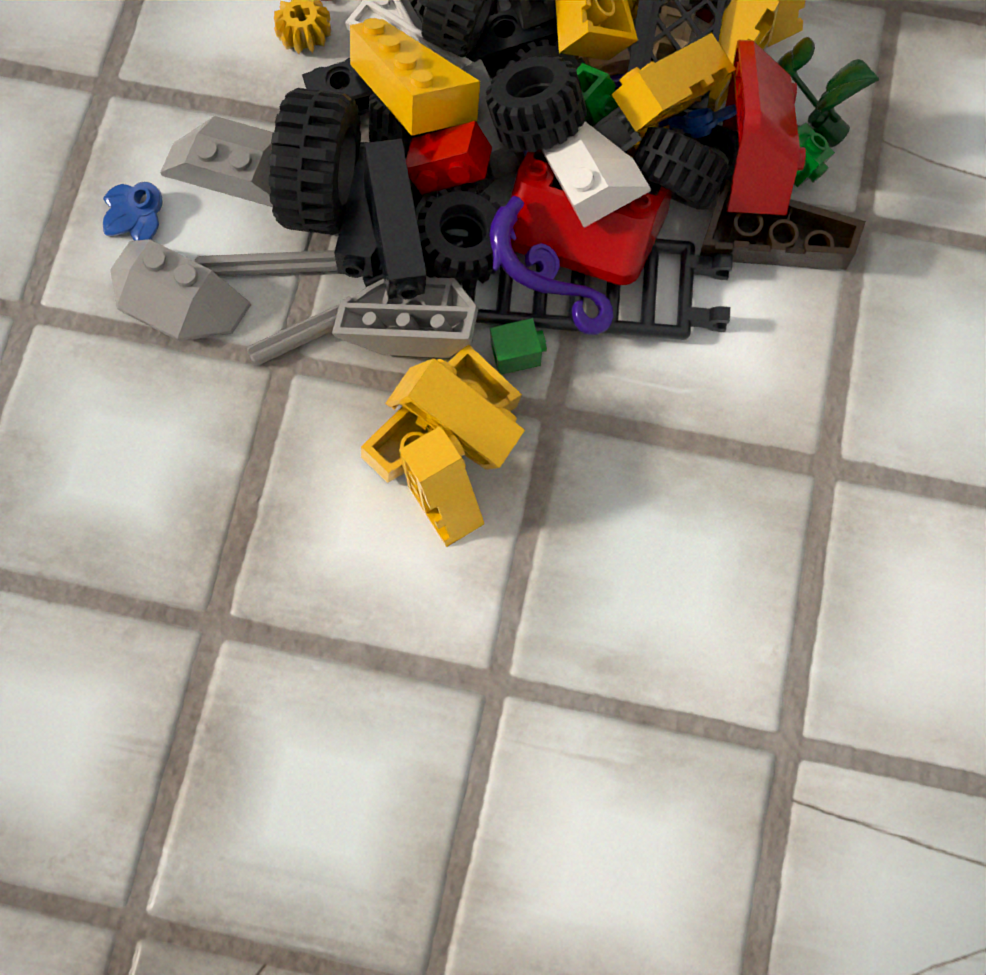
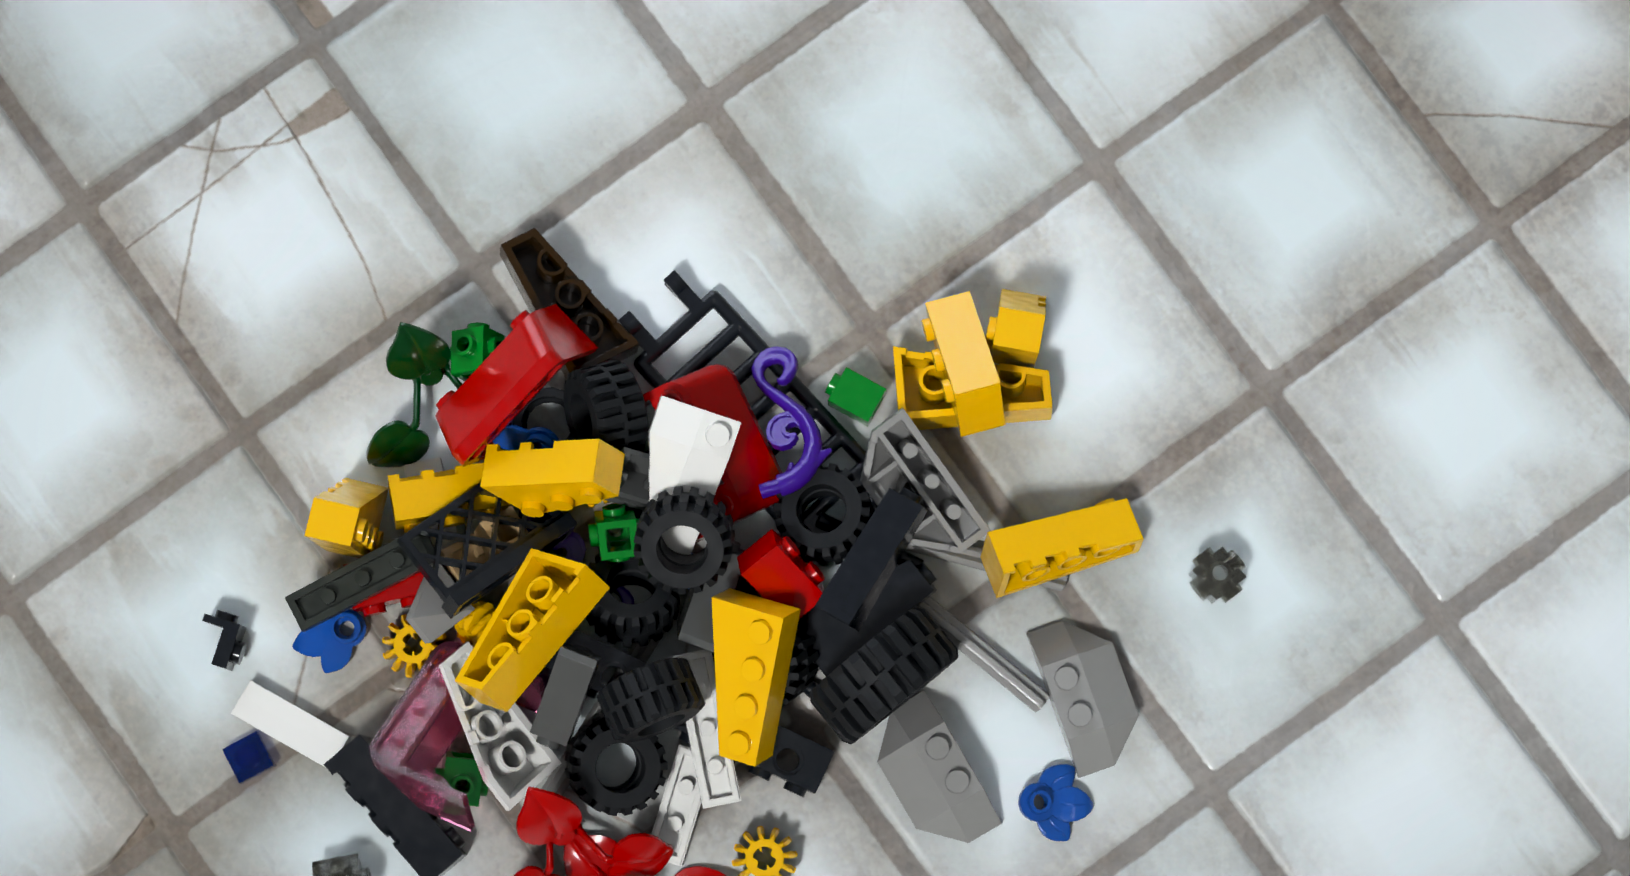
camera: 135 degrees left, 10 degrees up
(136, 446) = (1204, 582): none -> clear smoke brick
(271, 362) = (1059, 545): none -> yellow wedge

